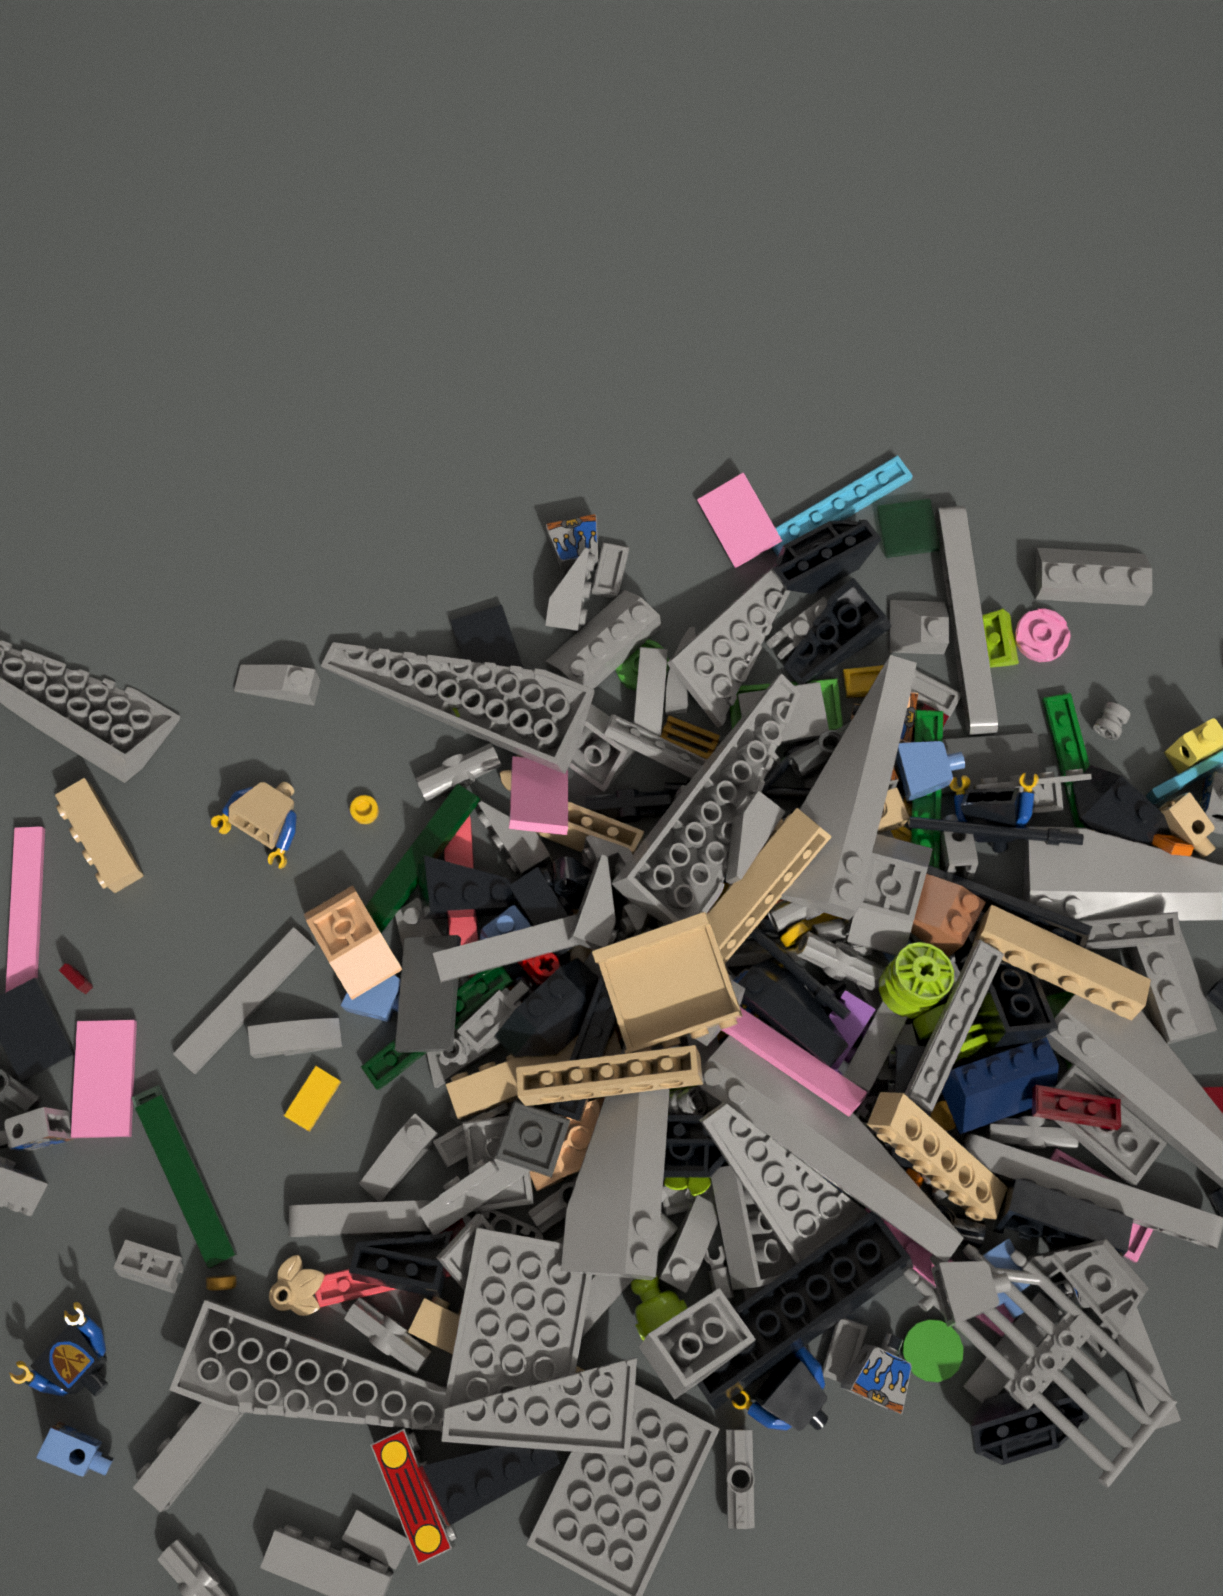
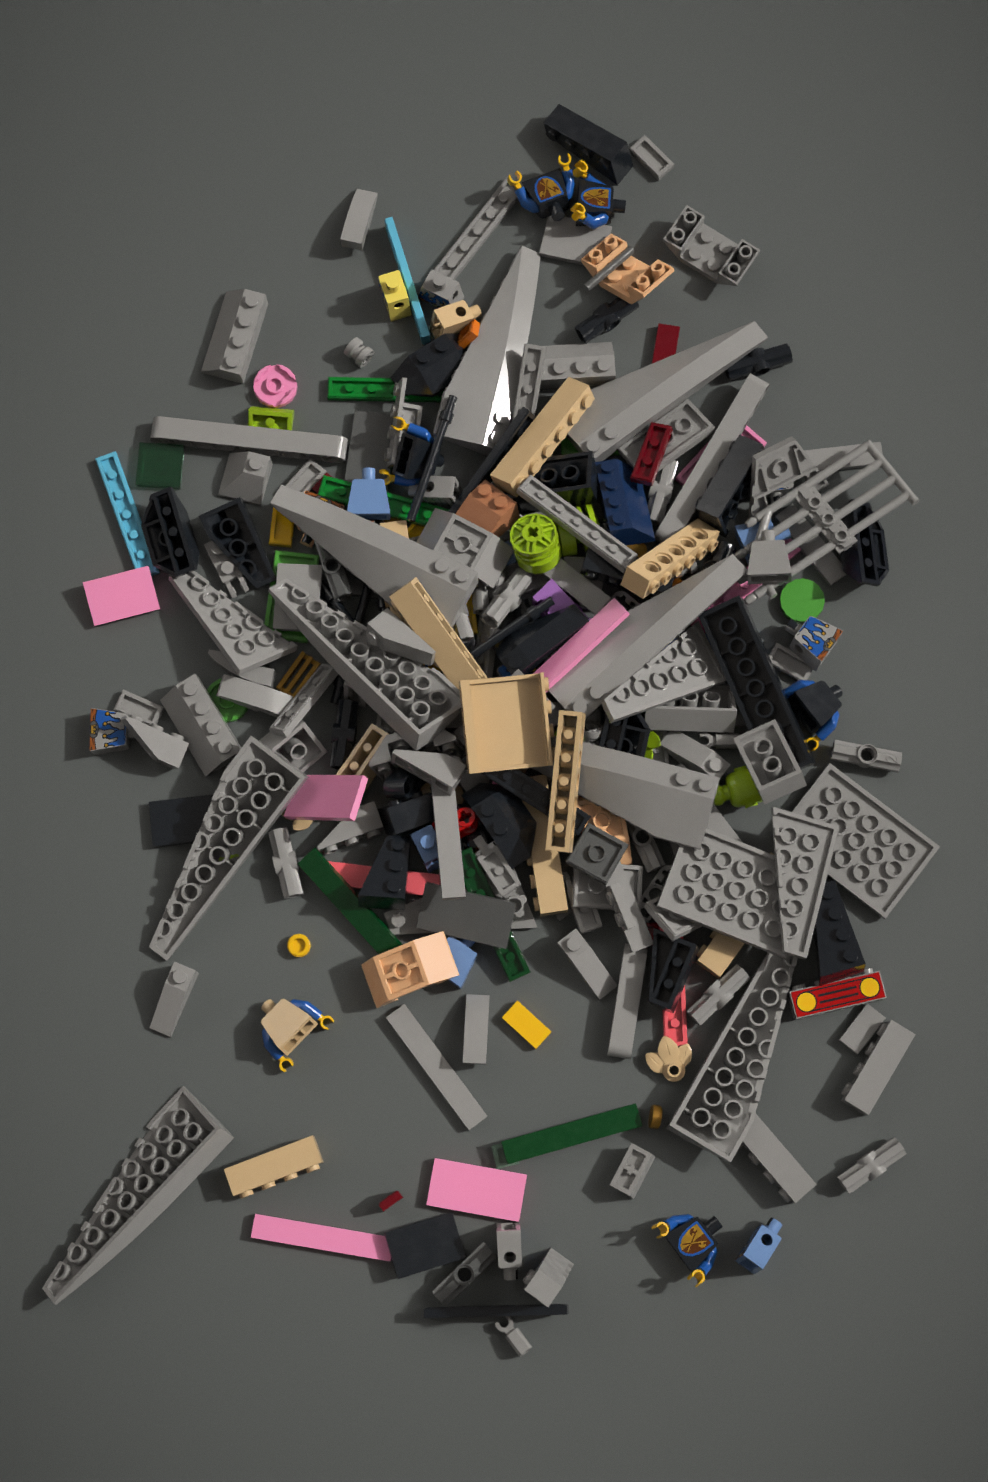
camera: 80 degrees left, 5 degrees up
(794, 934) = (478, 626): yellow tile -> none

